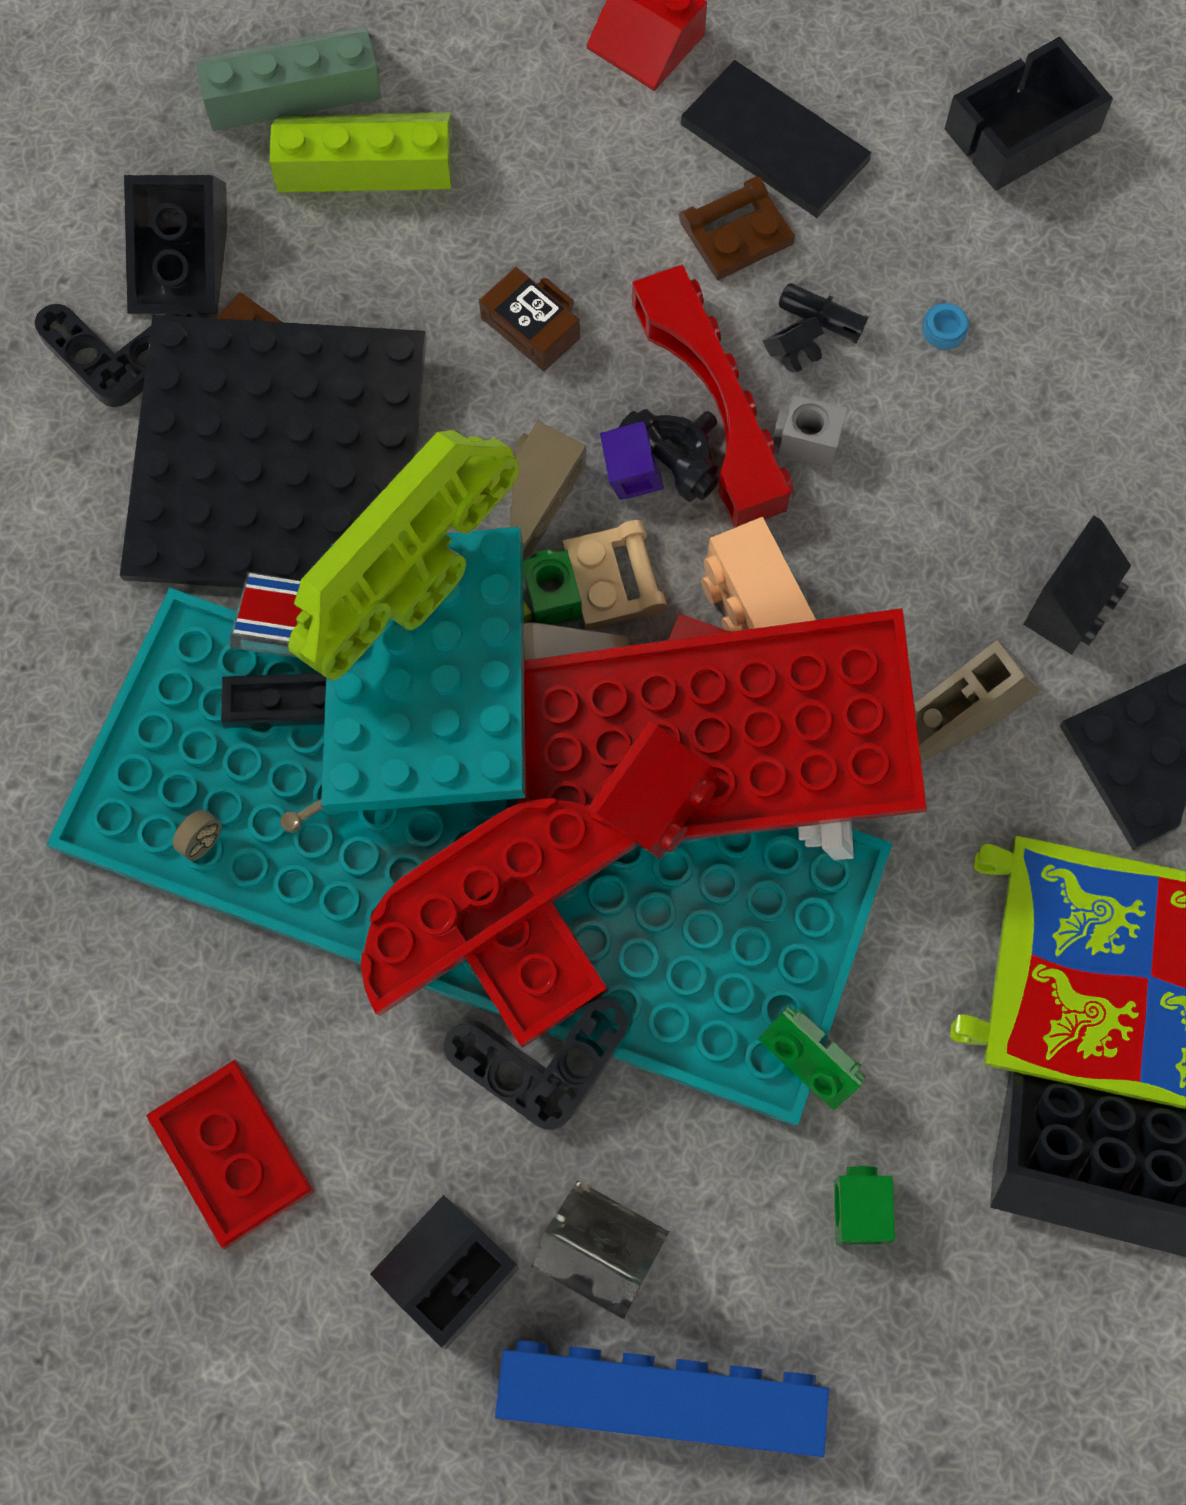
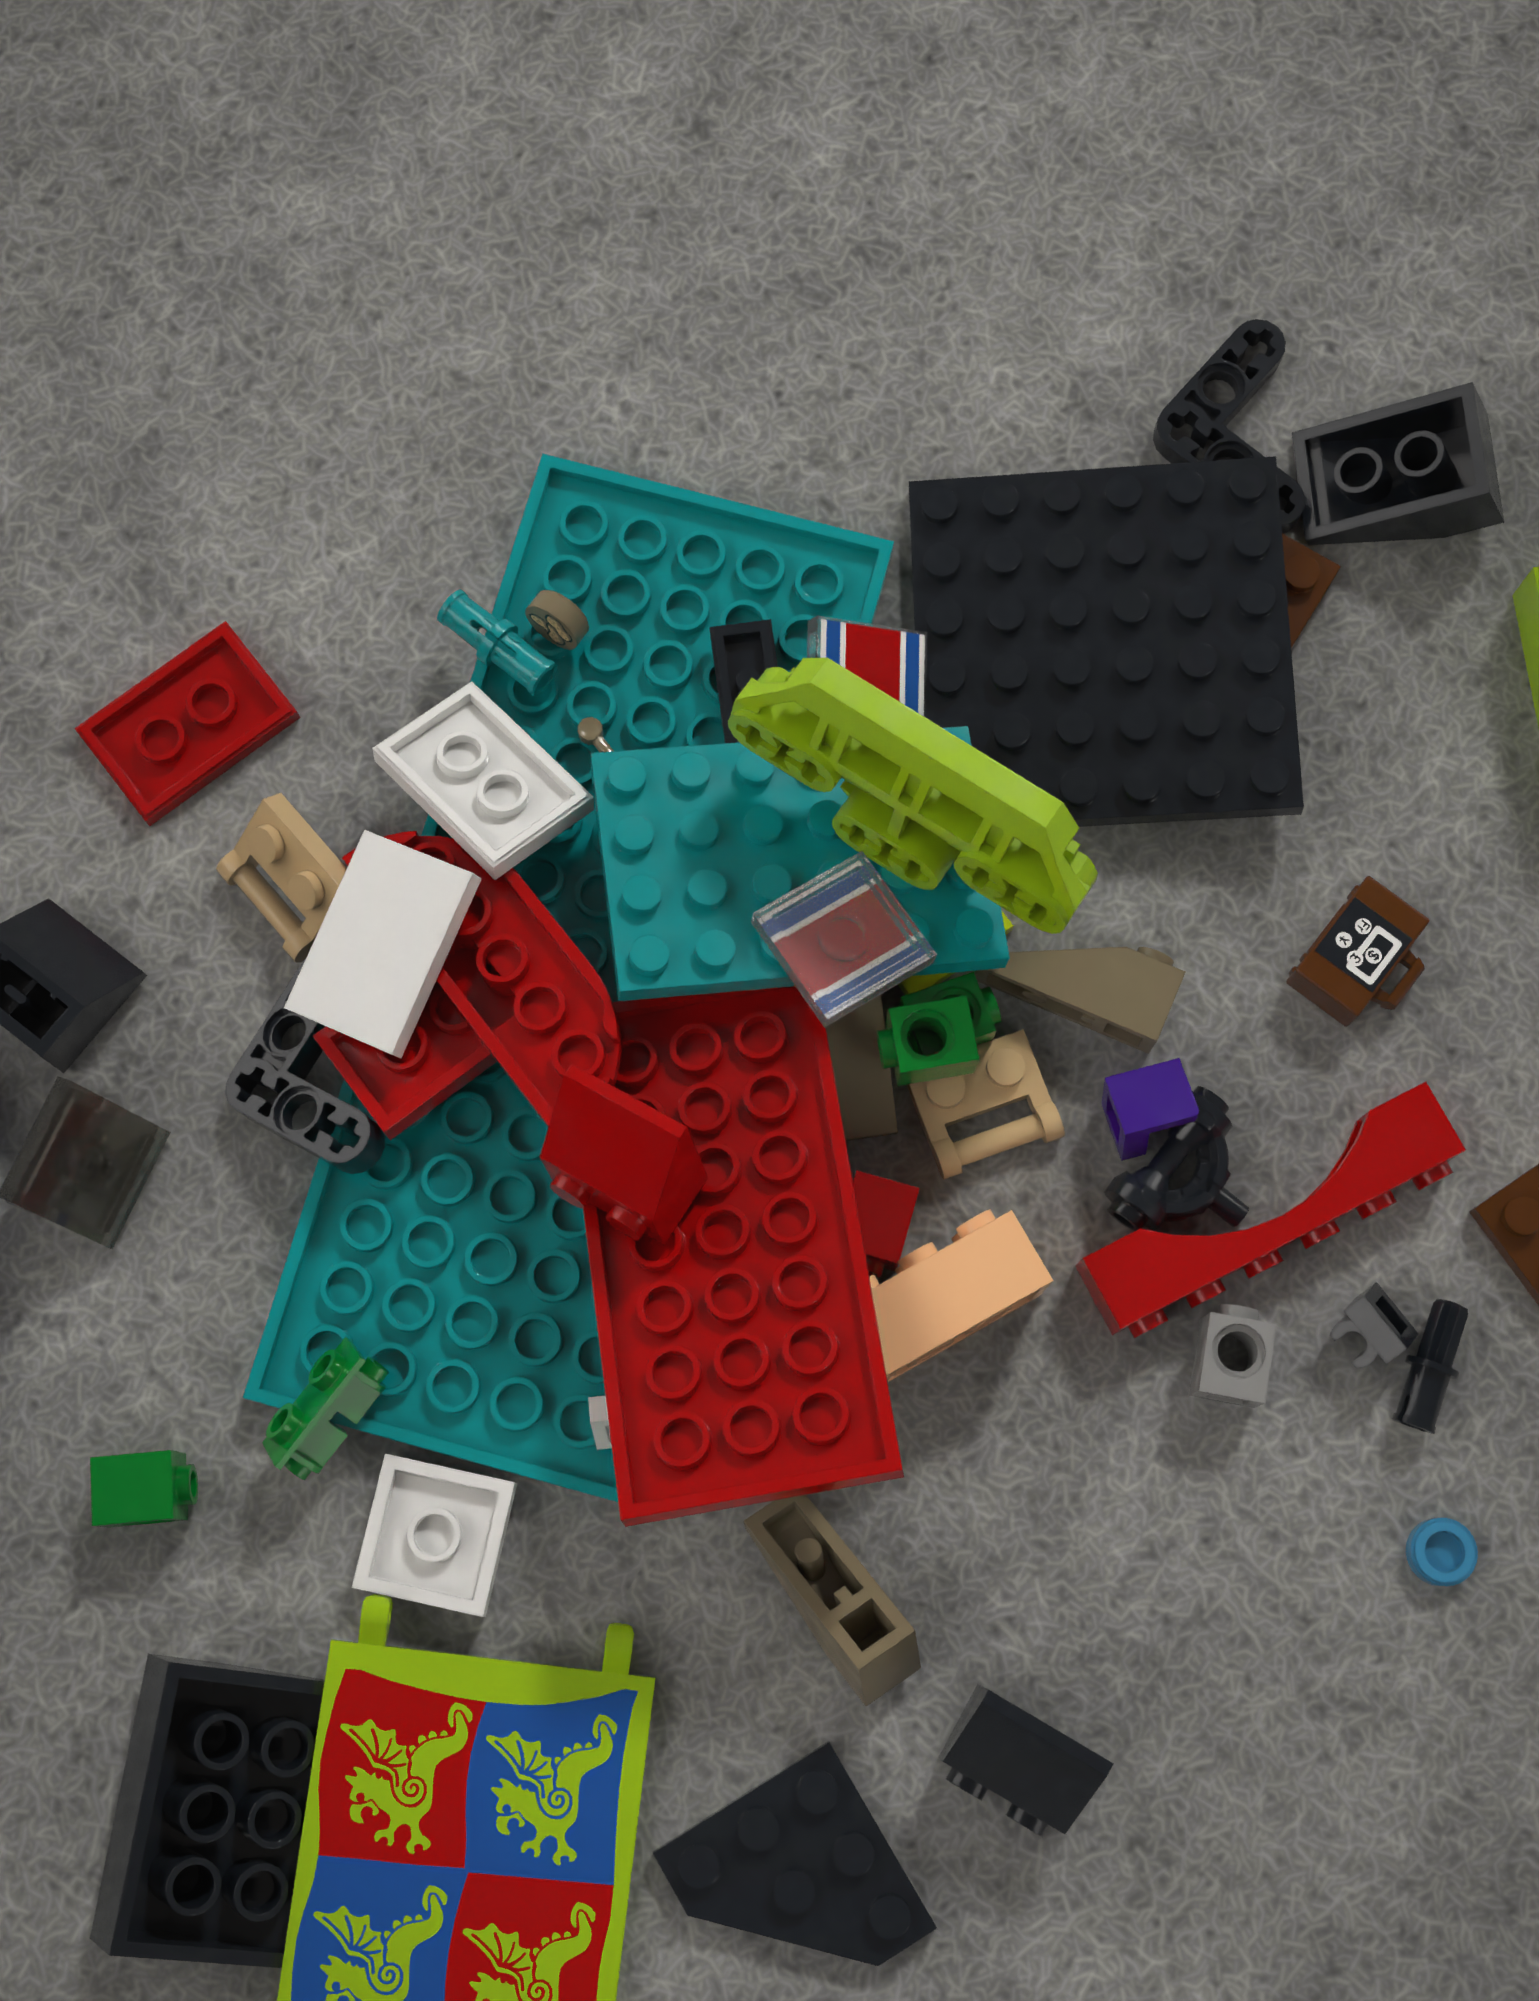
camera: 85 degrees right, 5 degrees up
(233, 859) = (466, 619): none -> teal pin
(325, 898) = (483, 779): none -> white tile
(371, 1056) = (295, 861): none -> tan plate
(455, 977) = (383, 943): none -> white tile
(498, 628) = (843, 938): none -> clear tile
(571, 569) = (948, 1019): none -> green brick
(908, 986) = (434, 1535): none -> white plate

